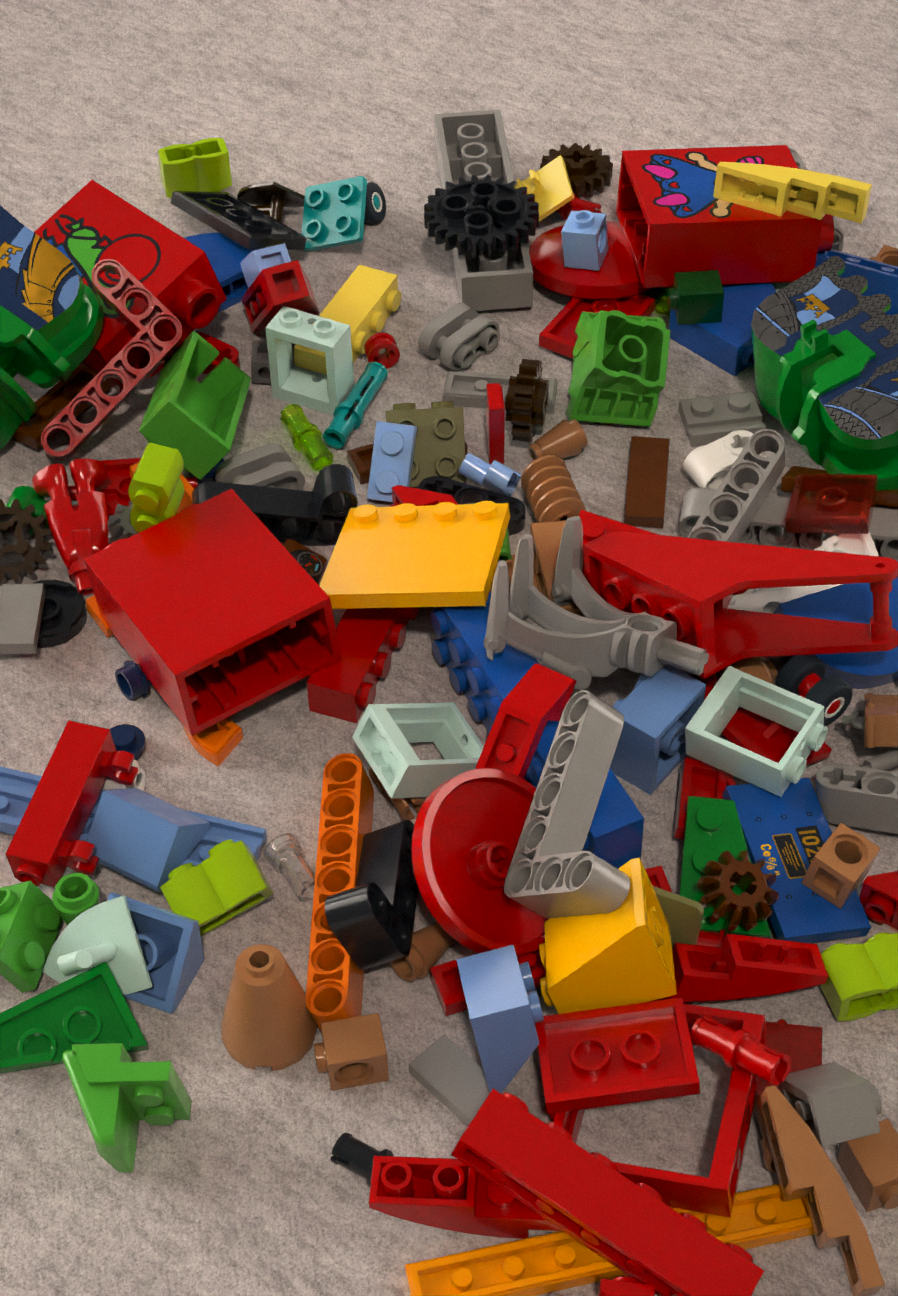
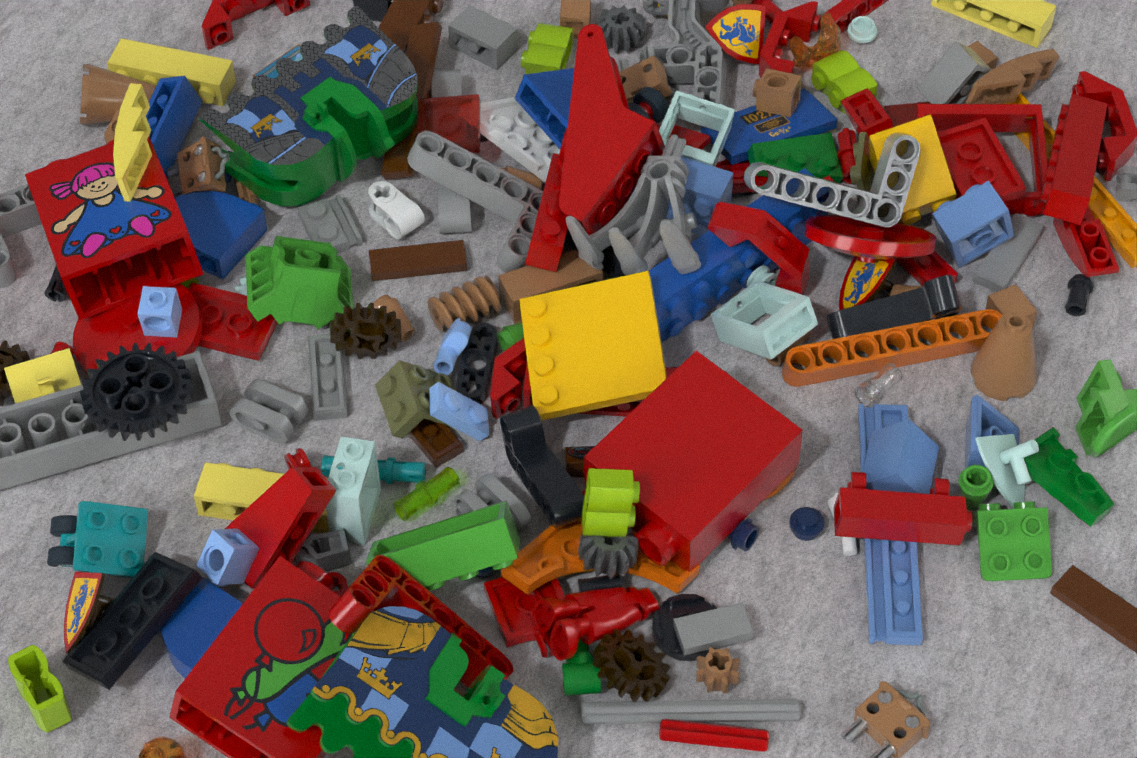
camera: 105 degrees left, 5 degrees up
(218, 887) = (927, 406): lime brick -> none
(495, 422) = (399, 343): red tile -> none
(696, 297) = (218, 231): dark green brick -> none
(740, 1050) = (955, 102): red pin -> none
(750, 904) = (822, 134): reddish brown gear -> none

